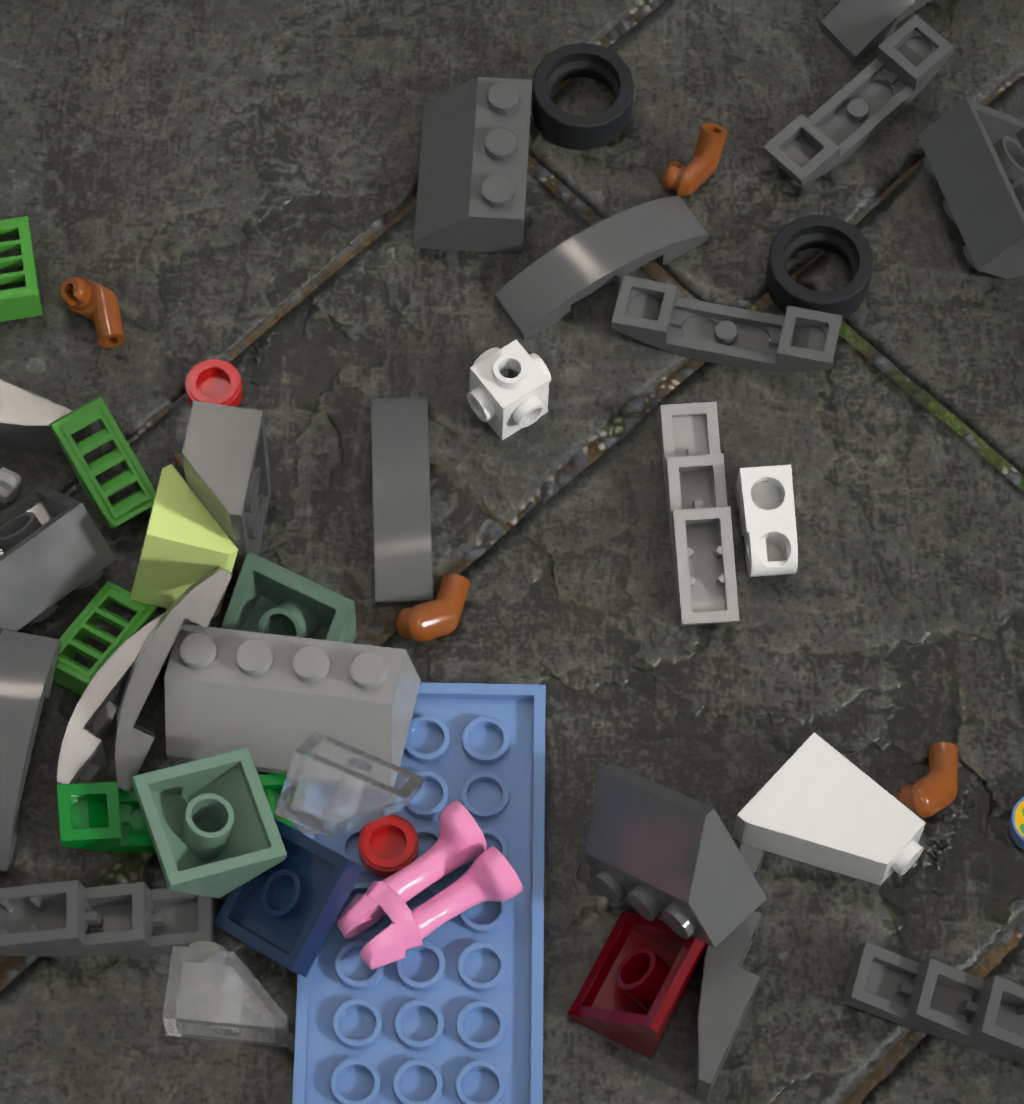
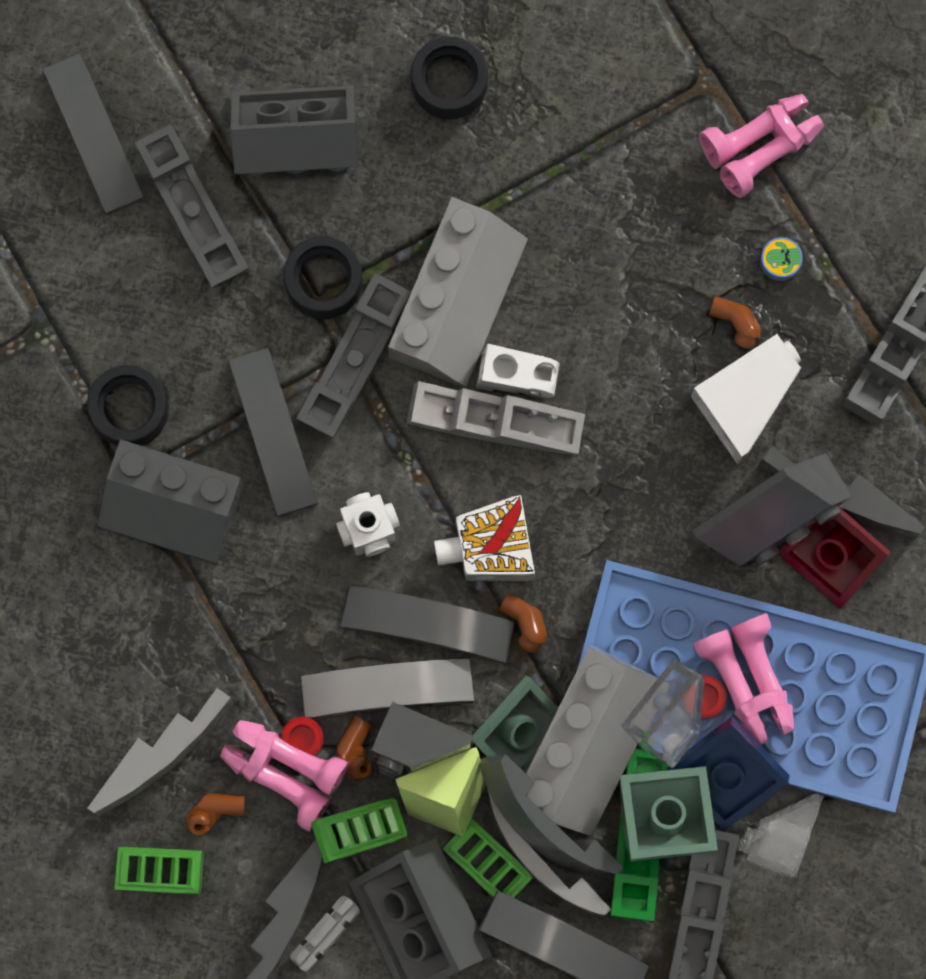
camera: 75 degrees left, 15 degrees up
(139, 220) = (147, 764): none -> light grey slope
(170, 333) = (256, 768): none -> bright pink piece
(308, 474) = (380, 685): none -> light grey slope
(529, 542) = (490, 543): none -> torso
(702, 164) = (211, 337): dark orange arm -> none
(853, 424) = (457, 293): none -> light grey slope

